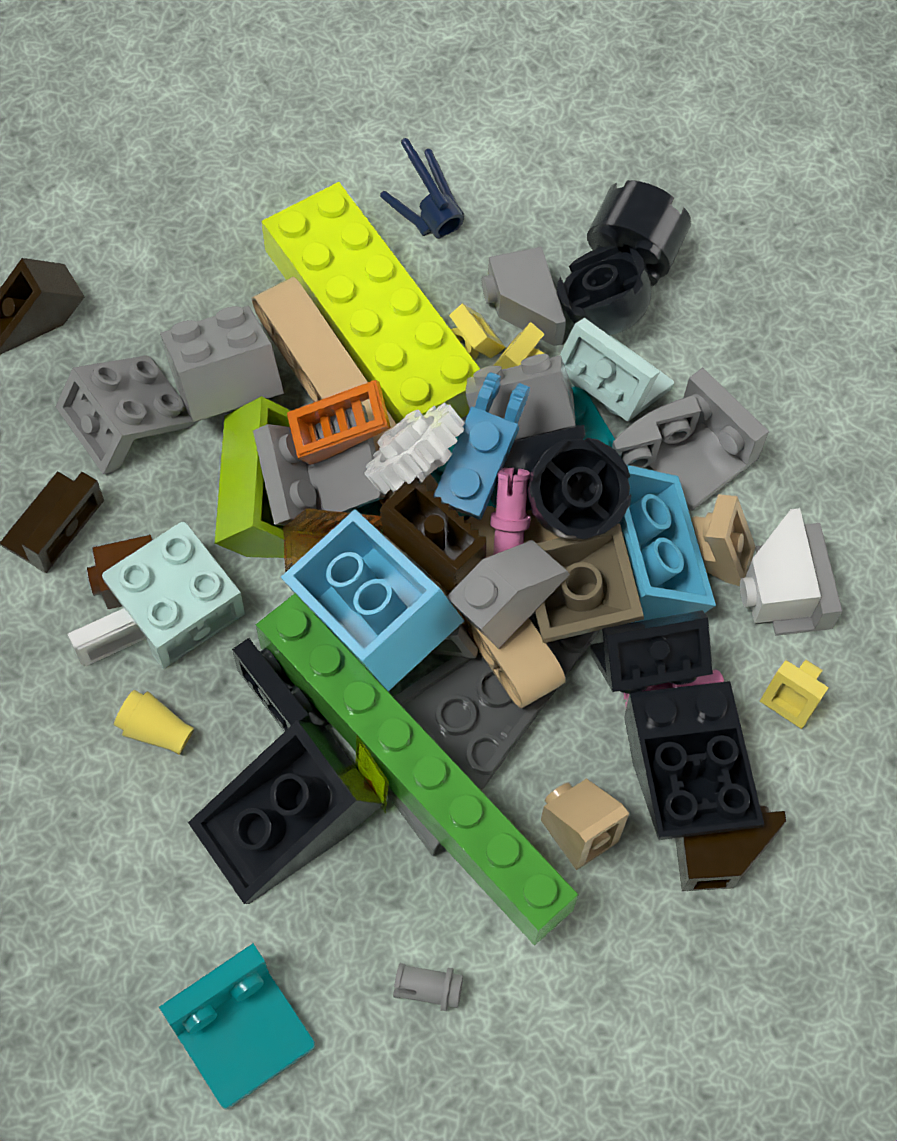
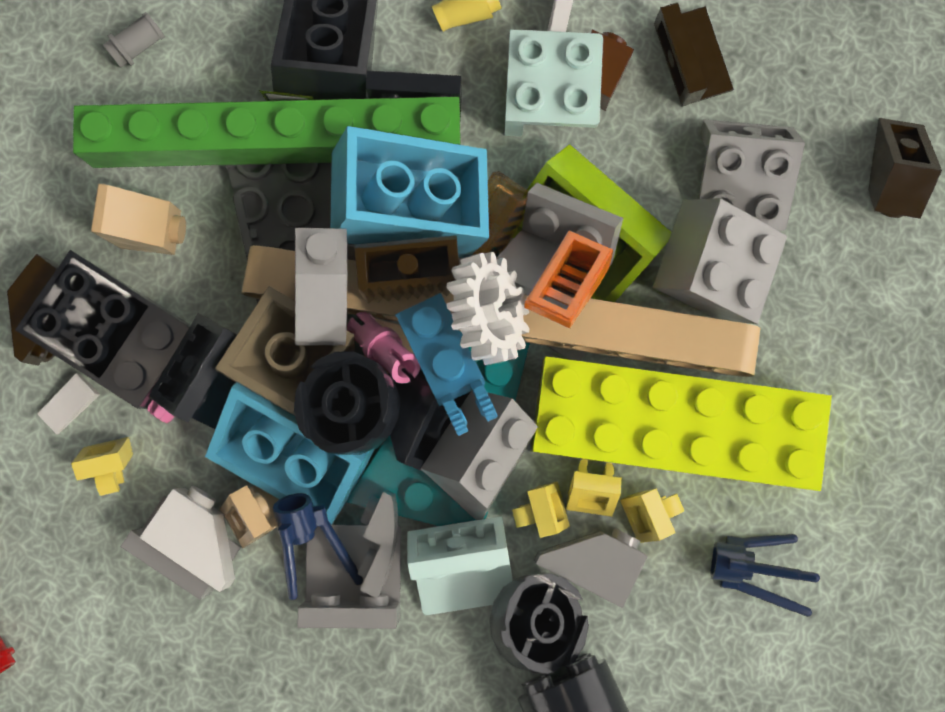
camera: 135 degrees right, 20 degrees up
(456, 282) = (651, 514): none -> light yellow tile
(695, 492) = (296, 526): none -> dark blue plant
(781, 769) = (68, 403): none -> white piece

